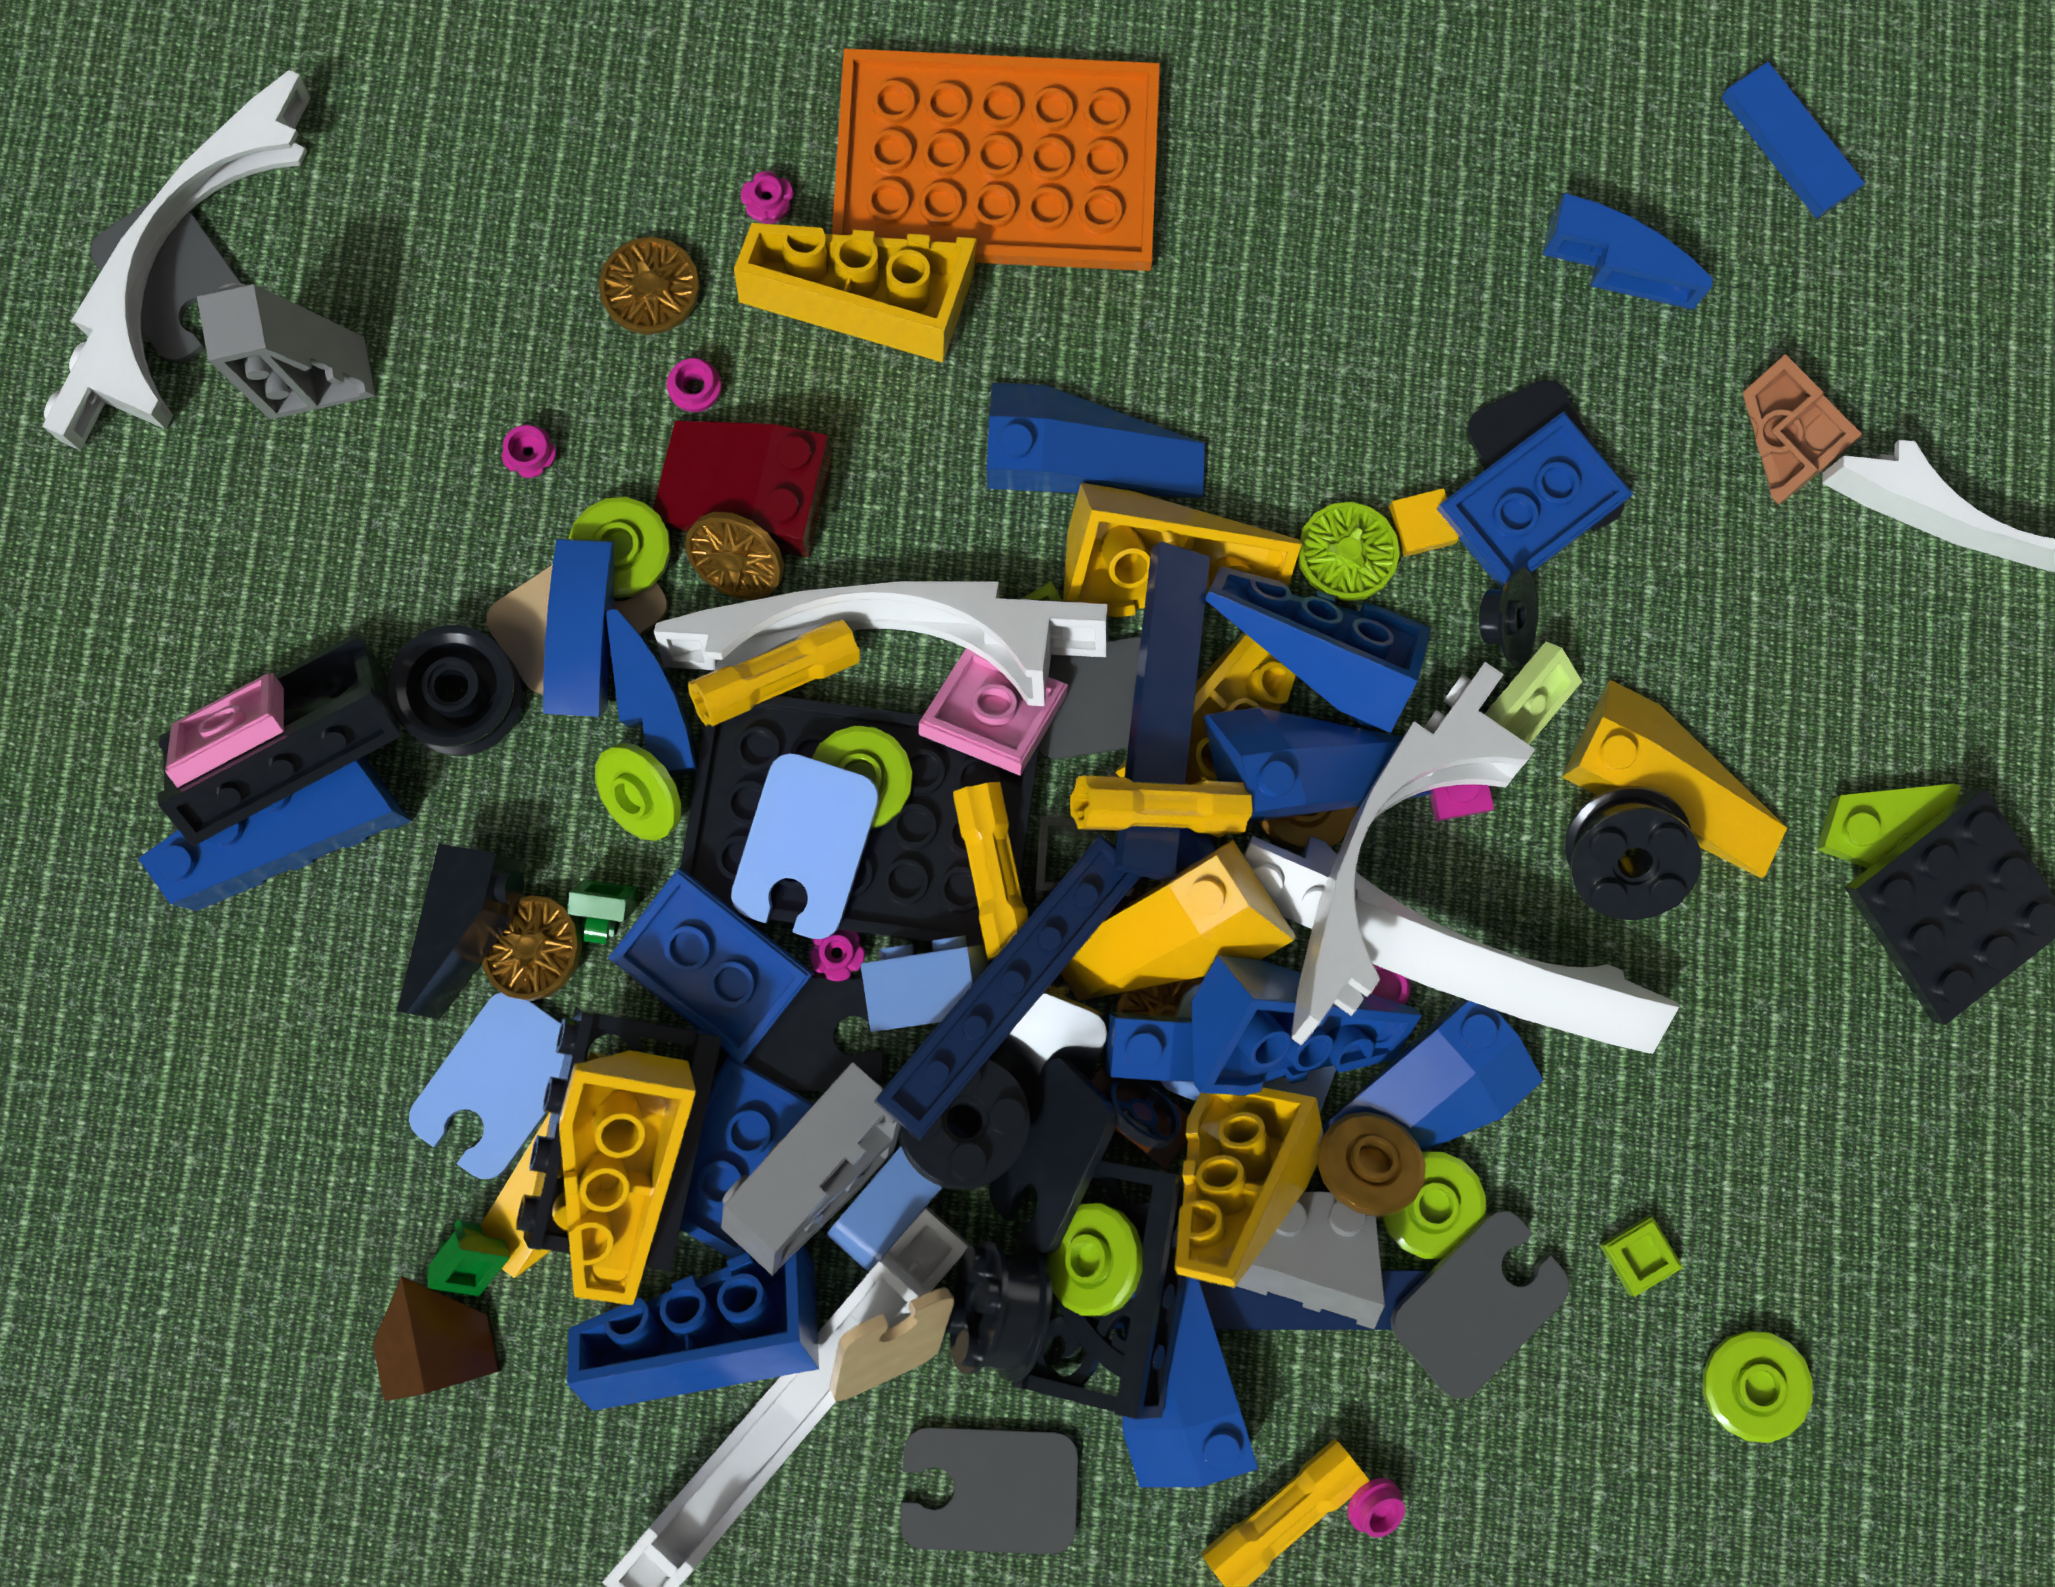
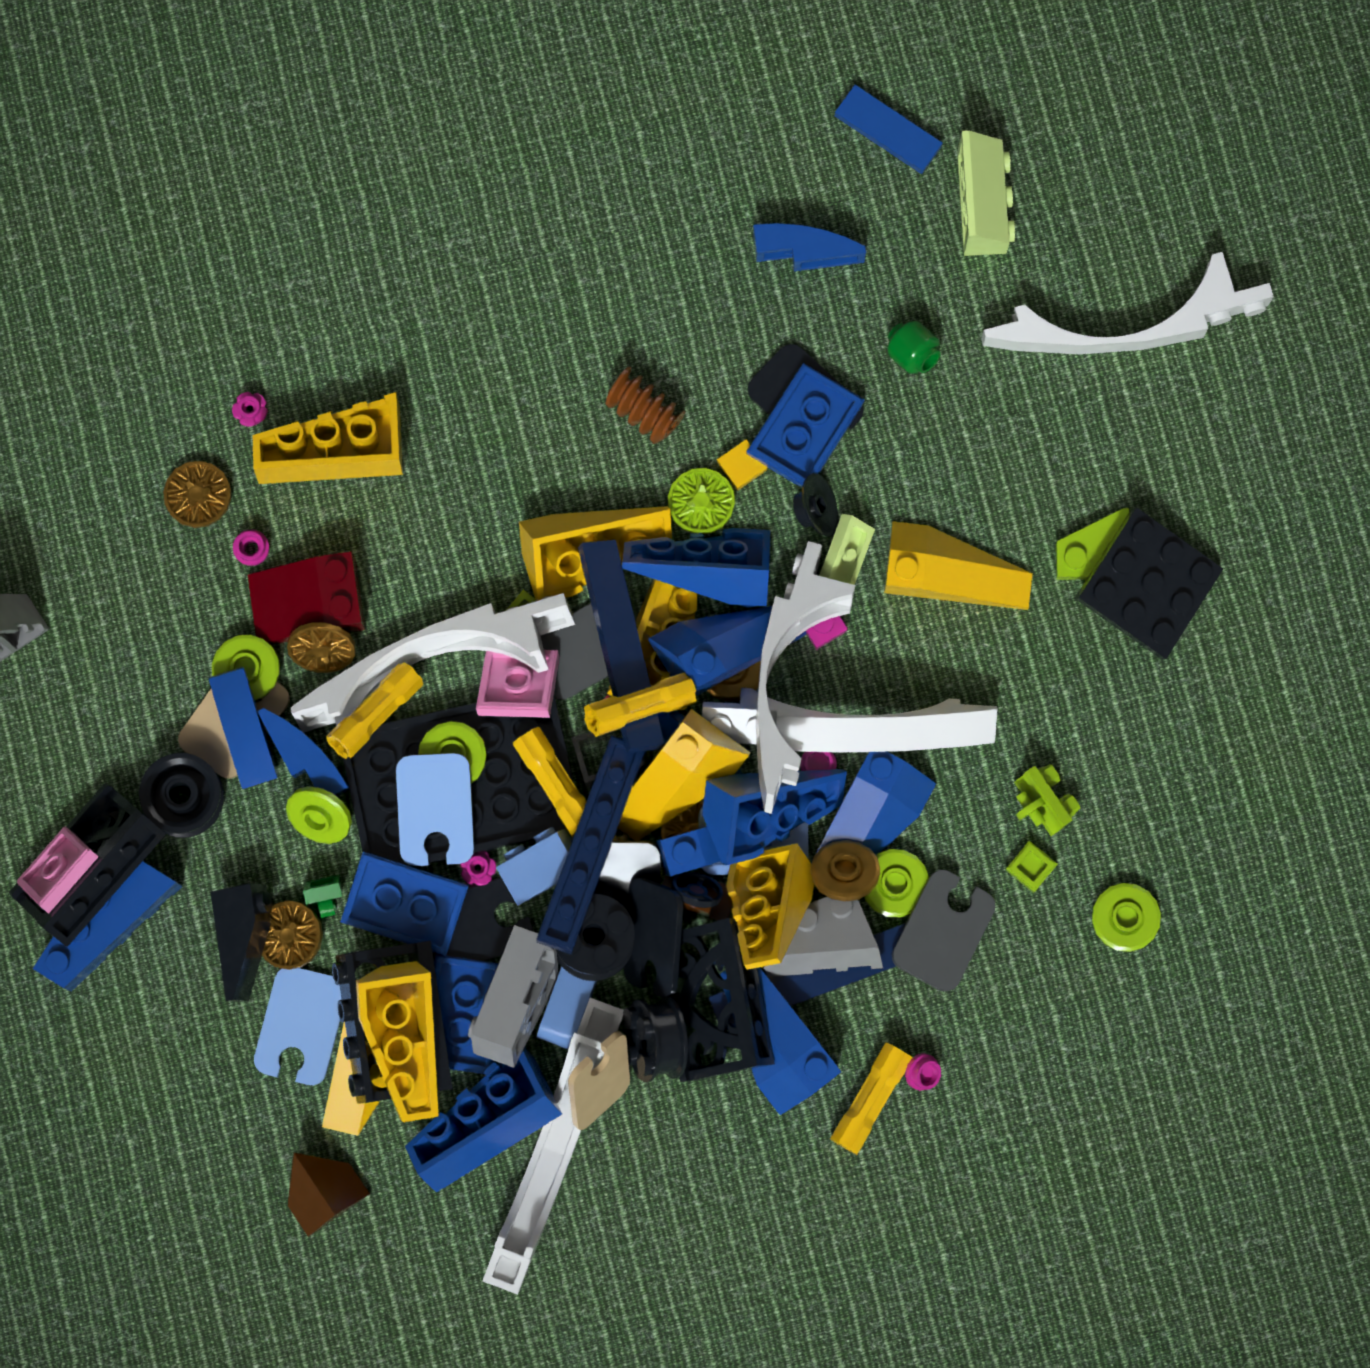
camera: 15 degrees left, 0 degrees up
(466, 1260) = (326, 1133): green tile -> none
(528, 437) = (161, 619): dark pink plate -> none
(1004, 150) = (388, 328): orange plate -> none
(1009, 1490) = (701, 1148): dark grey piece -> none
(1060, 440) = (499, 496): blue wedge -> none
(1097, 1261) = (702, 987): lime wheel -> none
(1313, 389) = (643, 407): none -> dark orange piece
(1637, 884) = (945, 645): black wheel -> none
(1695, 1168) = (1041, 802): none -> lime hips
(1729, 446) = (913, 347): none -> green head
(1795, 427) = (953, 317): nougat slope -> none
(1902, 270) = (984, 195): none -> yellowish green slope

